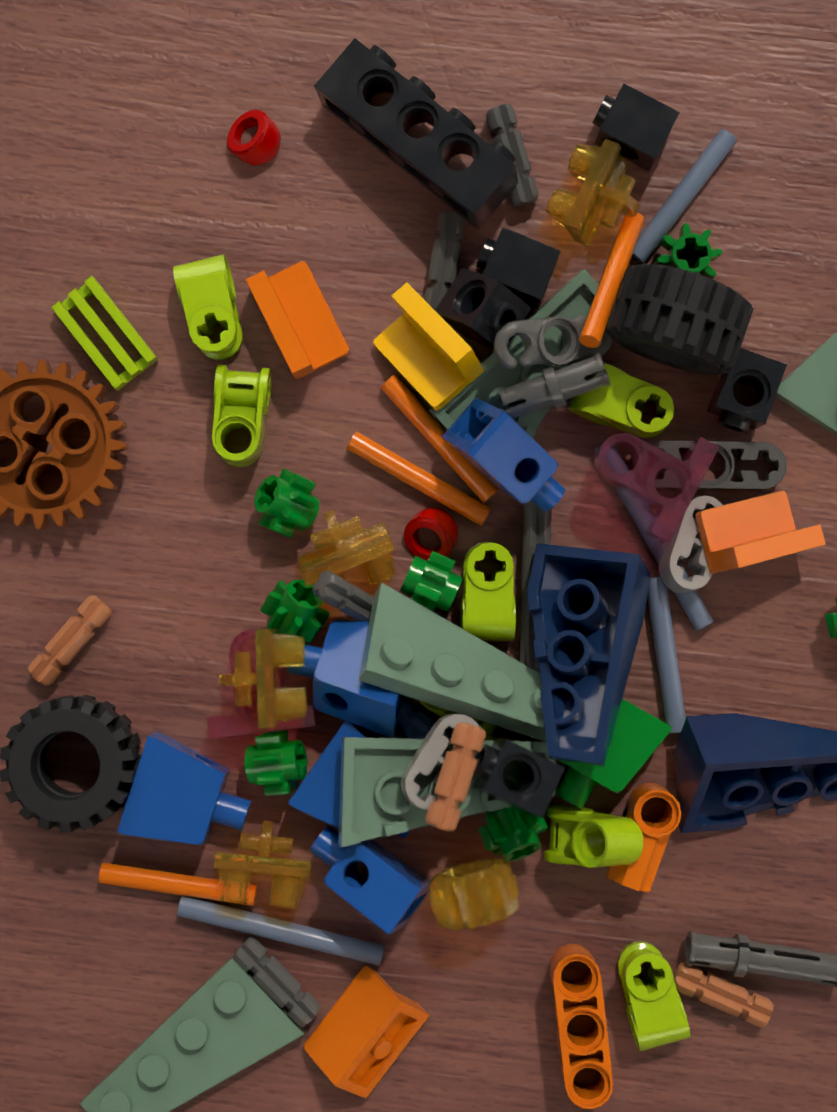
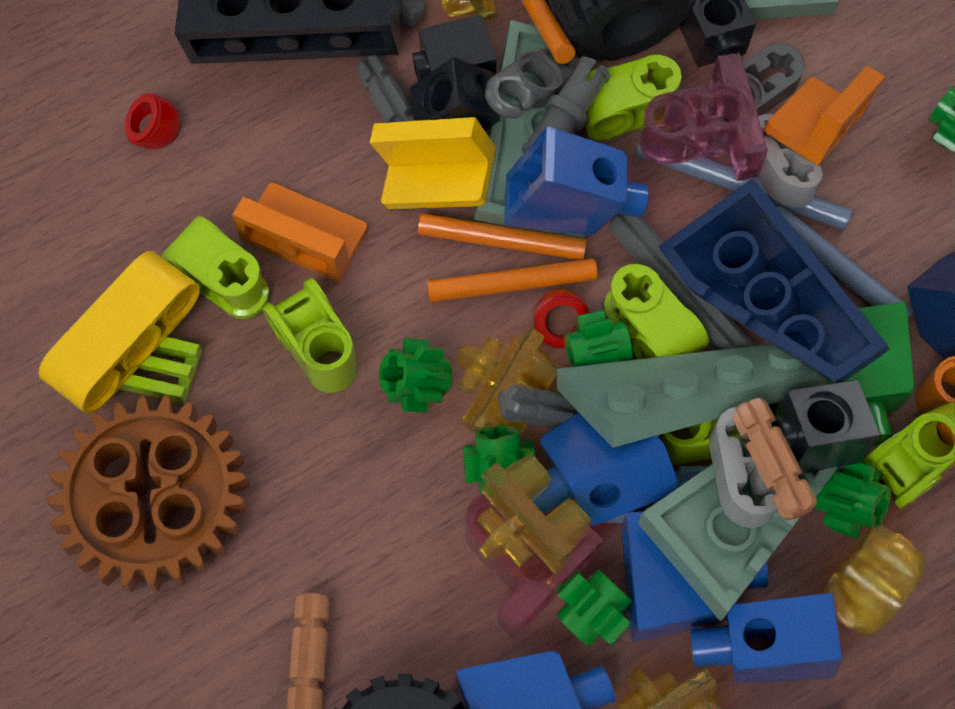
camera: 40 degrees left, 20 degrees down
(102, 310) = (119, 332): none -> yellow beam

